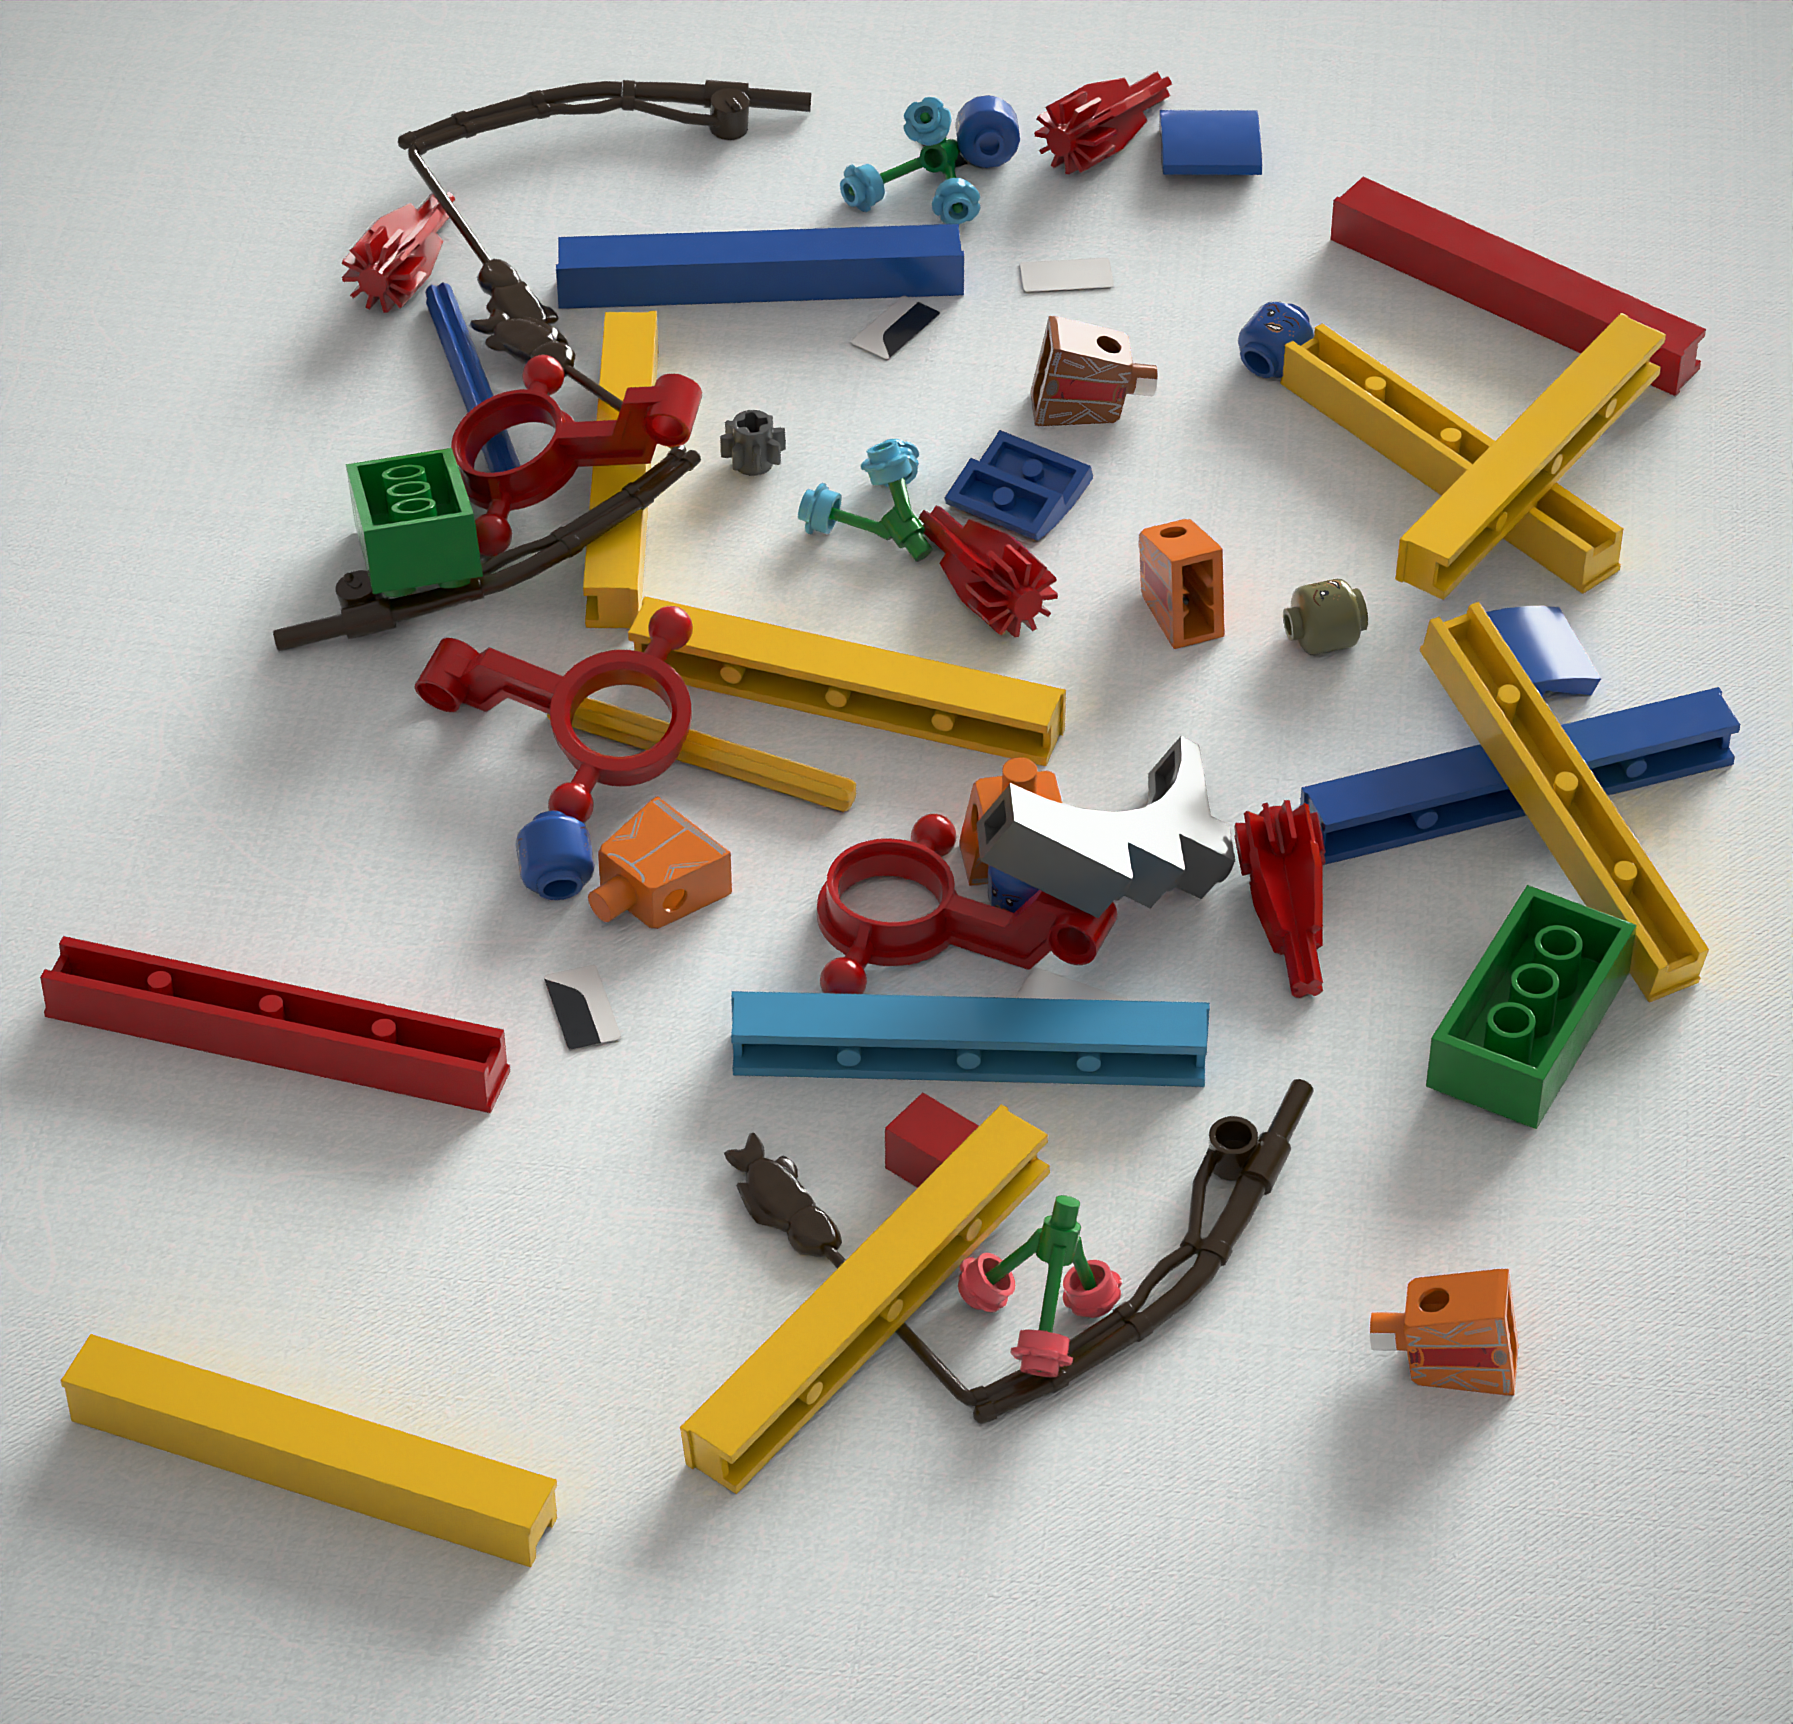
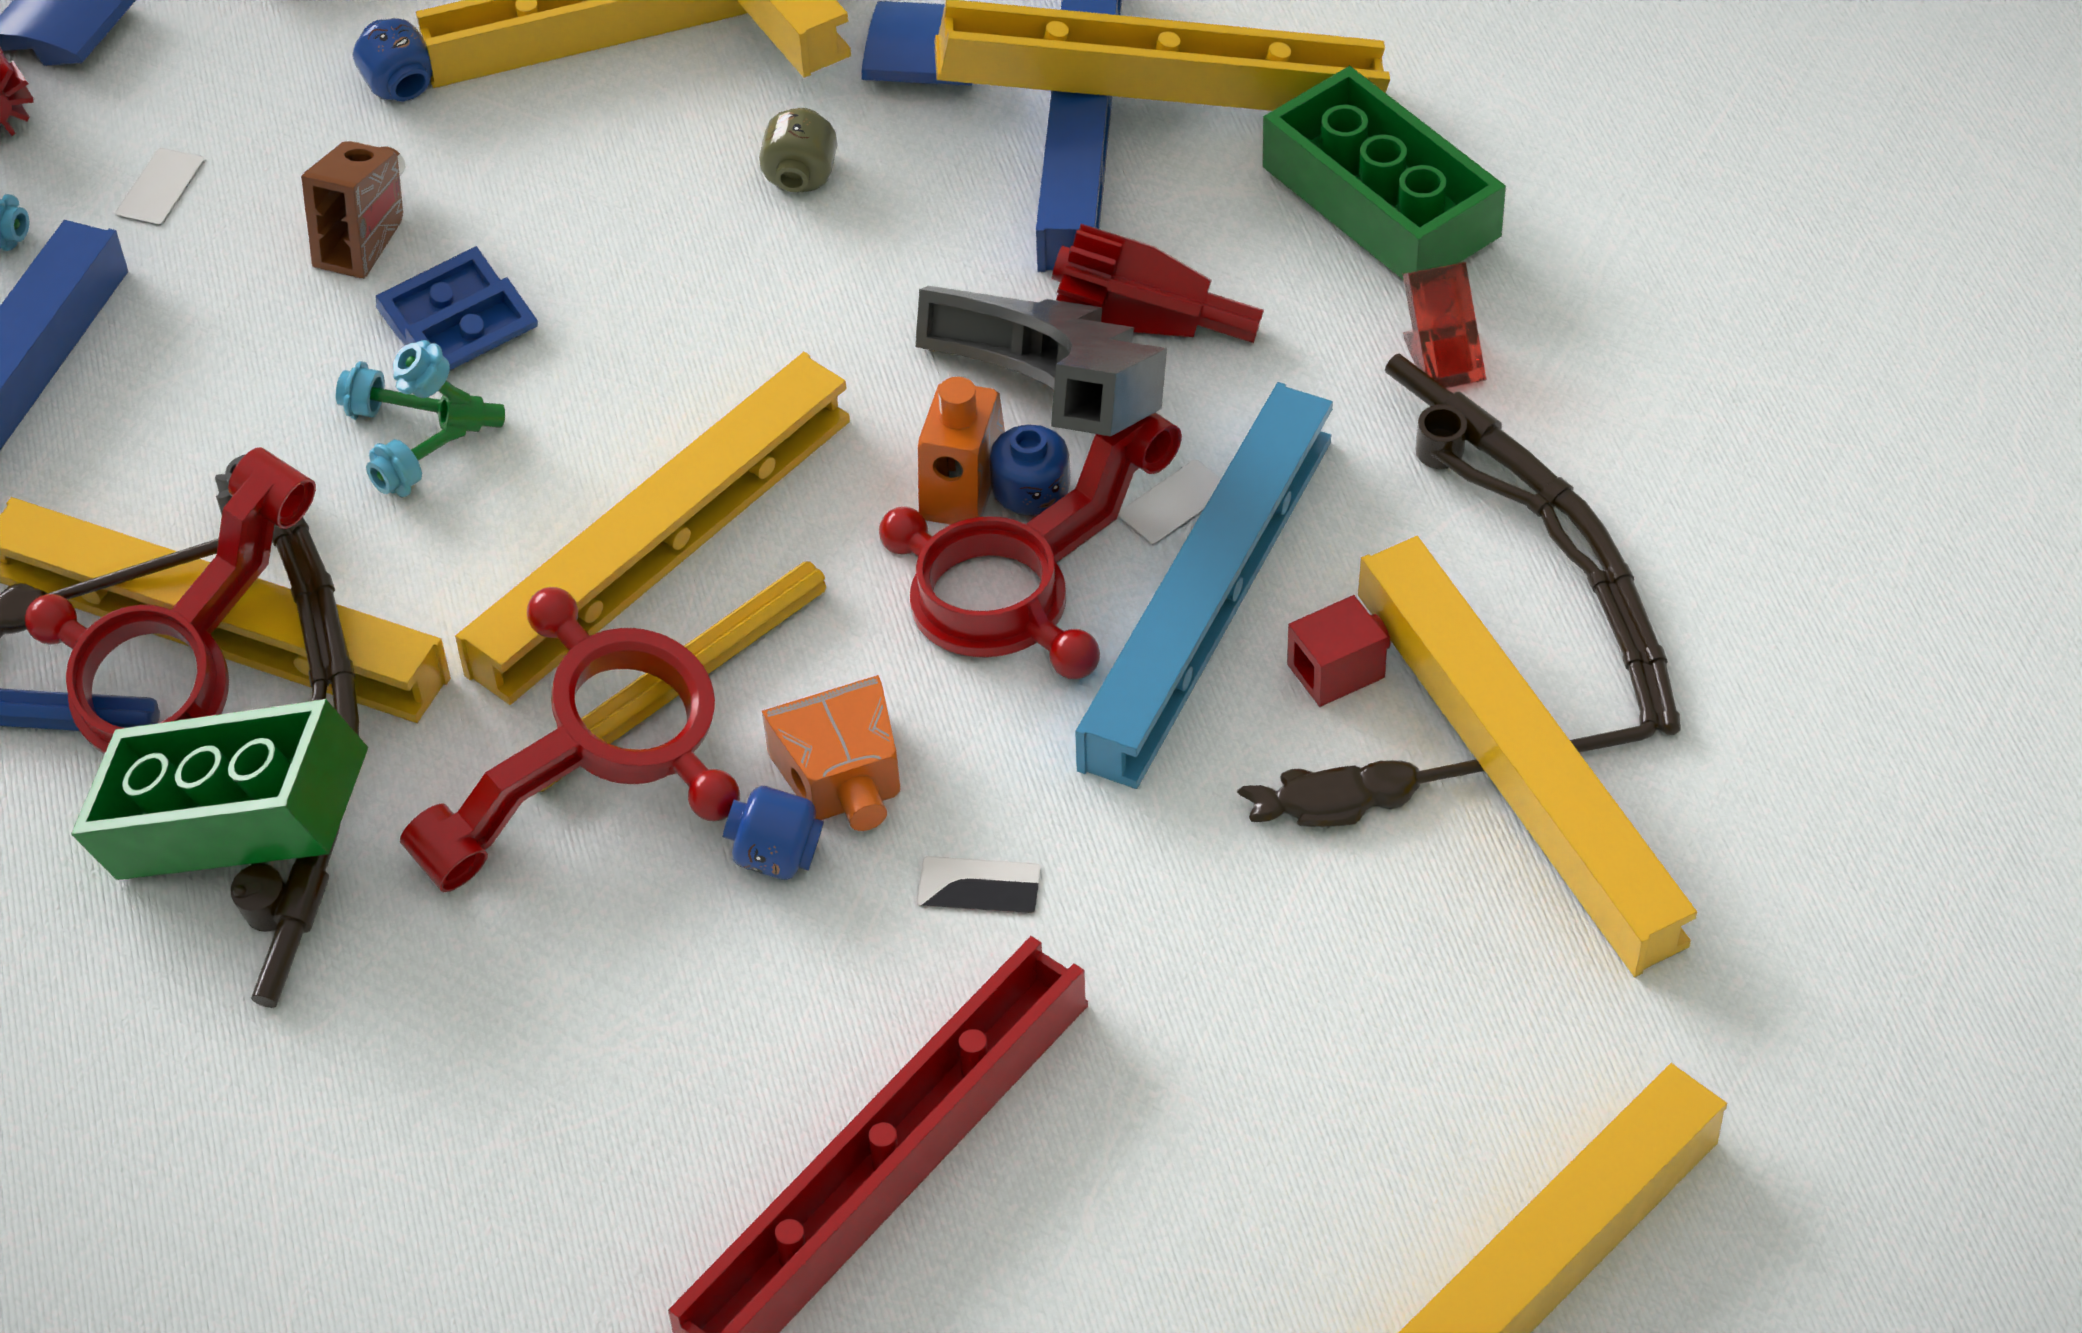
camera: 65 degrees left, 5 degrees up
(895, 327) = (138, 337): sticker -> none
(991, 572) = (578, 364): red piece -> none
(1088, 1286) = (1569, 591): plant -> none
(1181, 562) = (690, 225): orange torso -> none
(1363, 1109) = (1444, 325): none -> clear red slope
(1455, 1332) = (1738, 369): orange torso -> none

